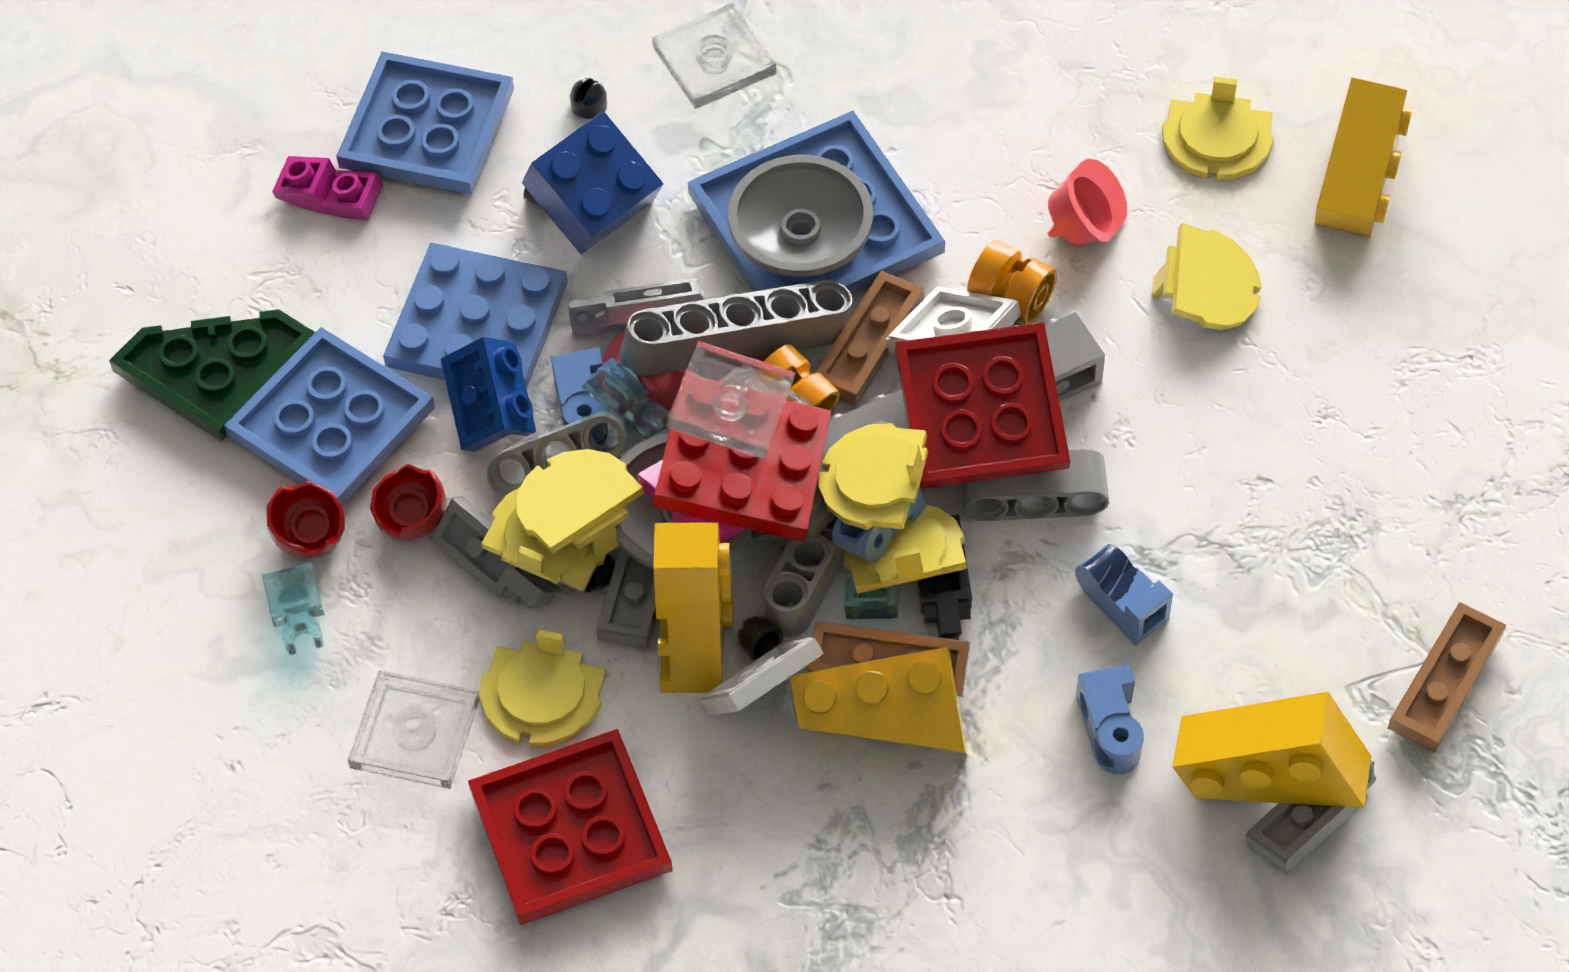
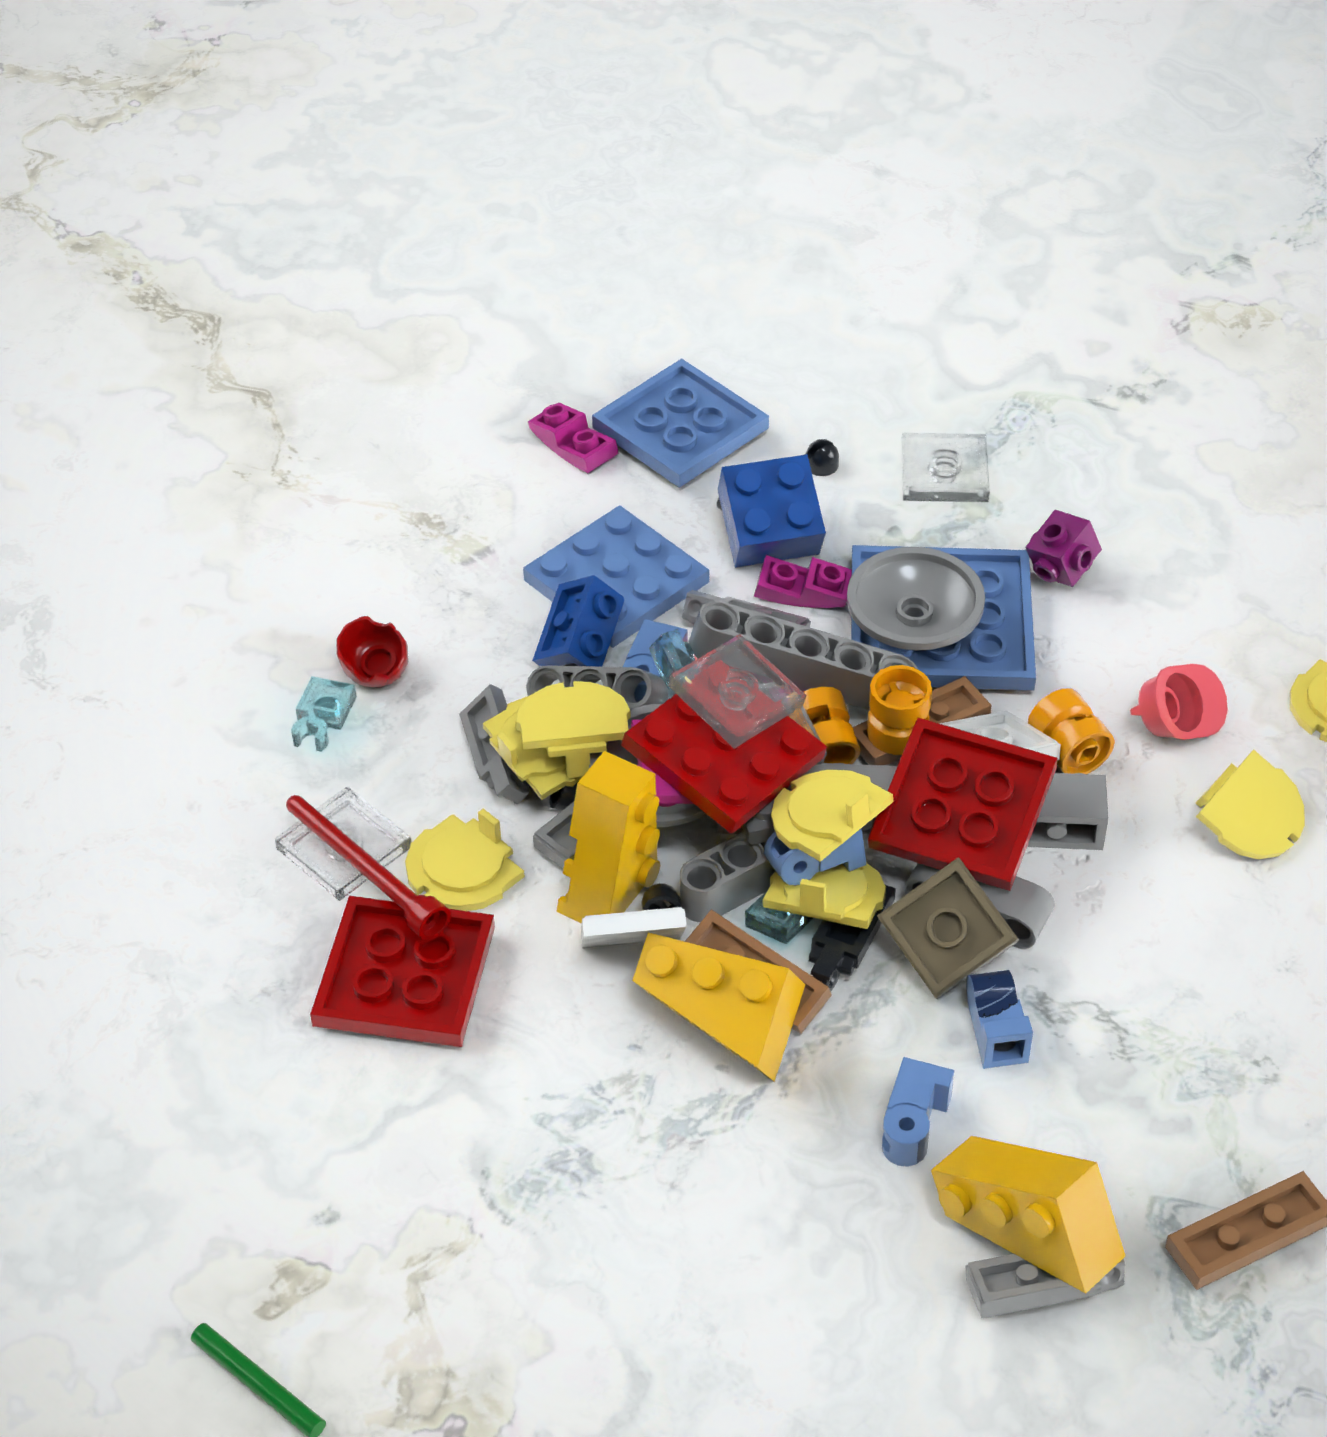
camera: 30 degrees right, 10 degrees down
(212, 365) = (397, 522): dark green plate -> none
(330, 416) = (451, 592): medium blue plate -> none
(408, 503) = (458, 677): red hair -> none
(560, 763) = (423, 913): none -> red piece
(671, 242) = (813, 587): none -> dark pink slope
(858, 337) = (895, 701): none -> light orange wheel
(886, 95) = (1063, 548): none -> magenta brick
(1036, 531) = (947, 928): none -> dark tan plate

